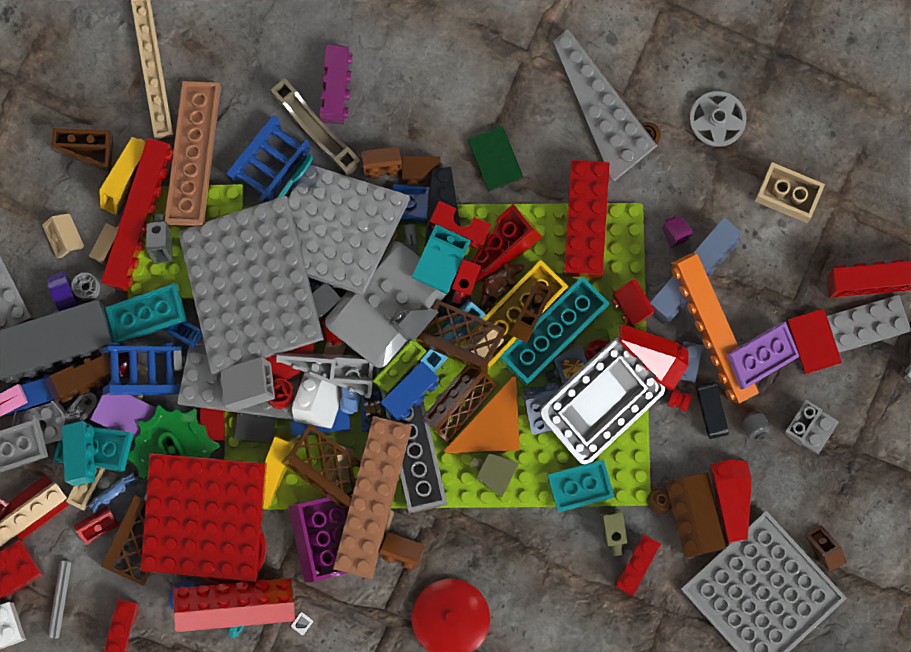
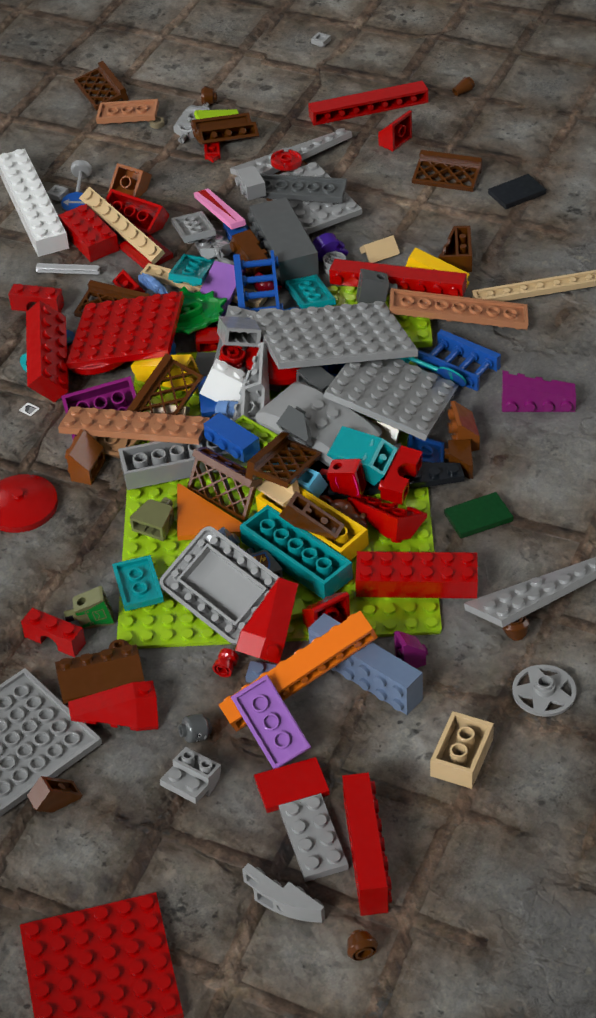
camera: 95 degrees right, 35 degrees down
(78, 453) = (185, 254): teal brick -> none
(302, 114) = (521, 361): dark tan arch -> none
(712, 410) = (211, 691): black beam -> none

